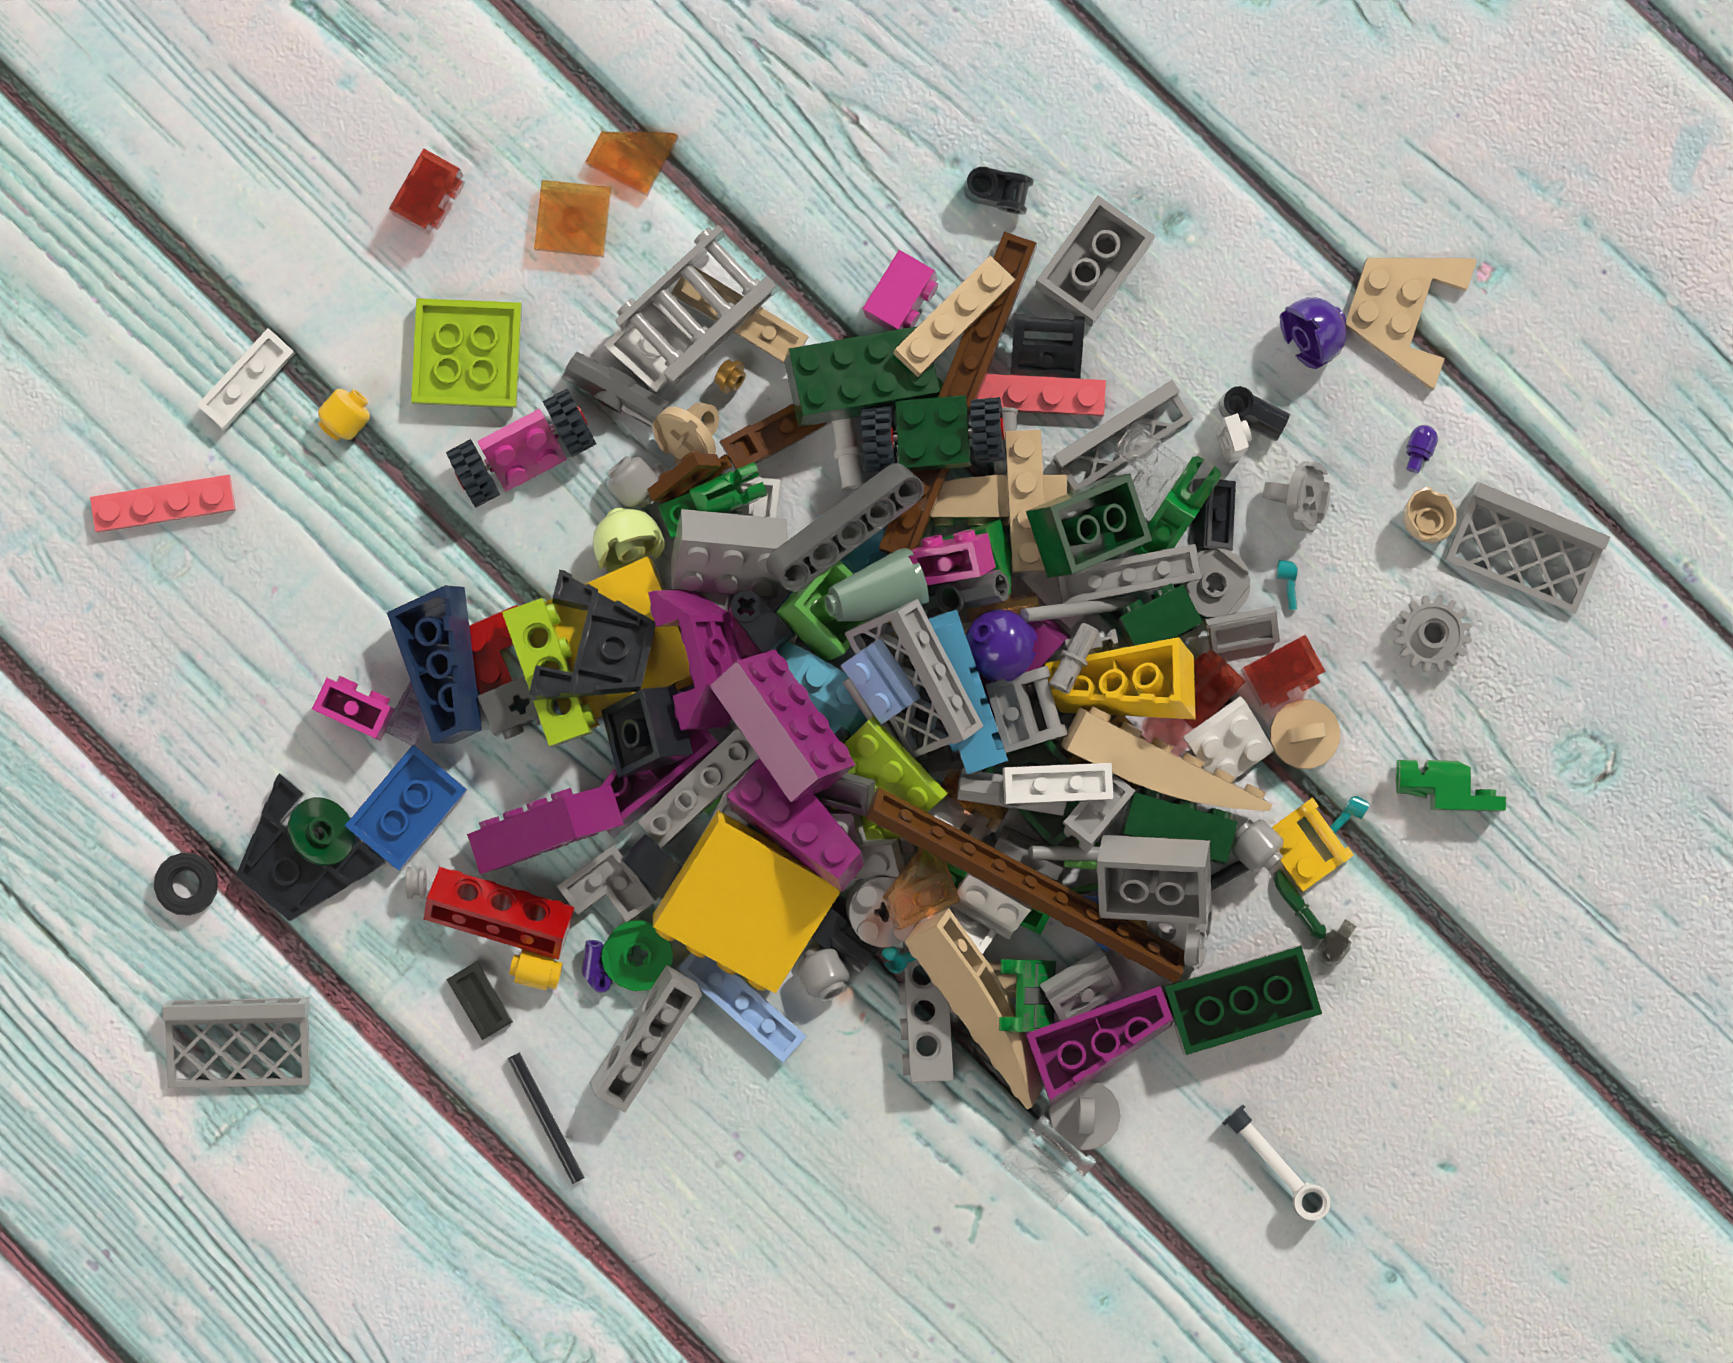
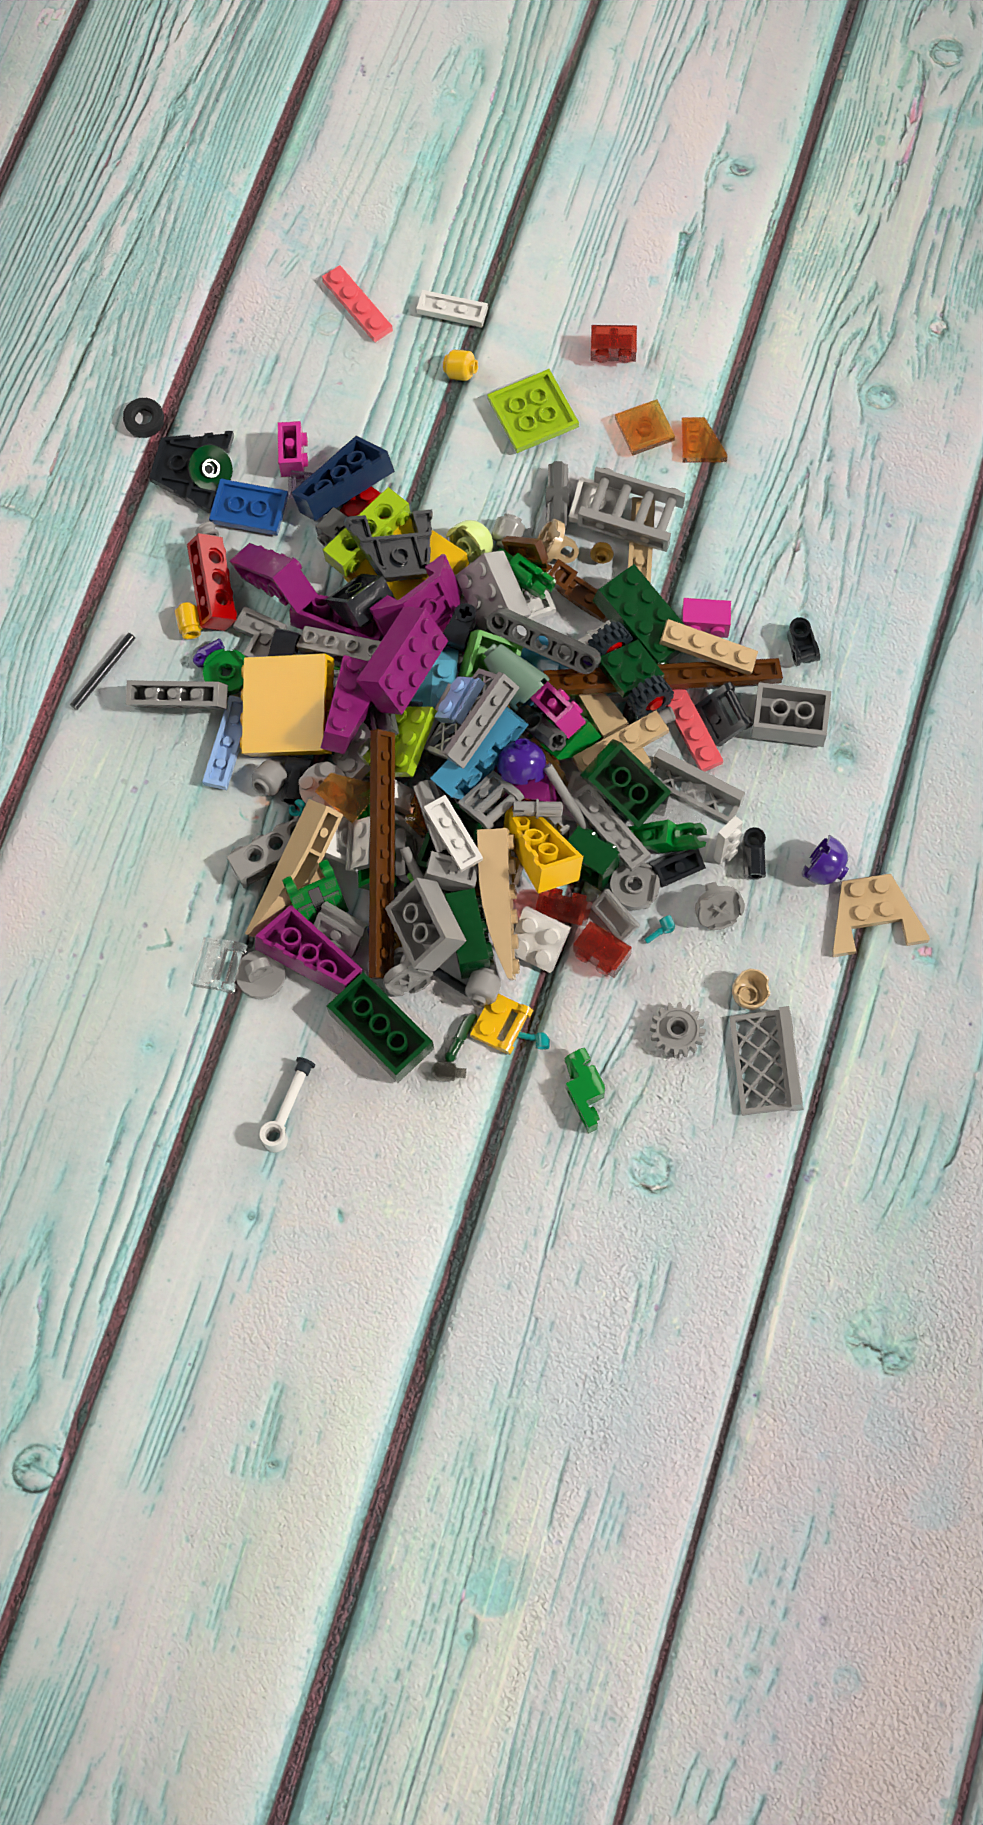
camera: 65 degrees right, 15 degrees down
(231, 1012) = (83, 481): light grey fence -> none
(479, 1000) = (155, 602): pearl dark grey tile -> none
(521, 449) = (492, 461): plate -> none
(1305, 734) = (570, 986): tan tile -> none
(1420, 447) = (791, 965): dark purple cylinder -> none

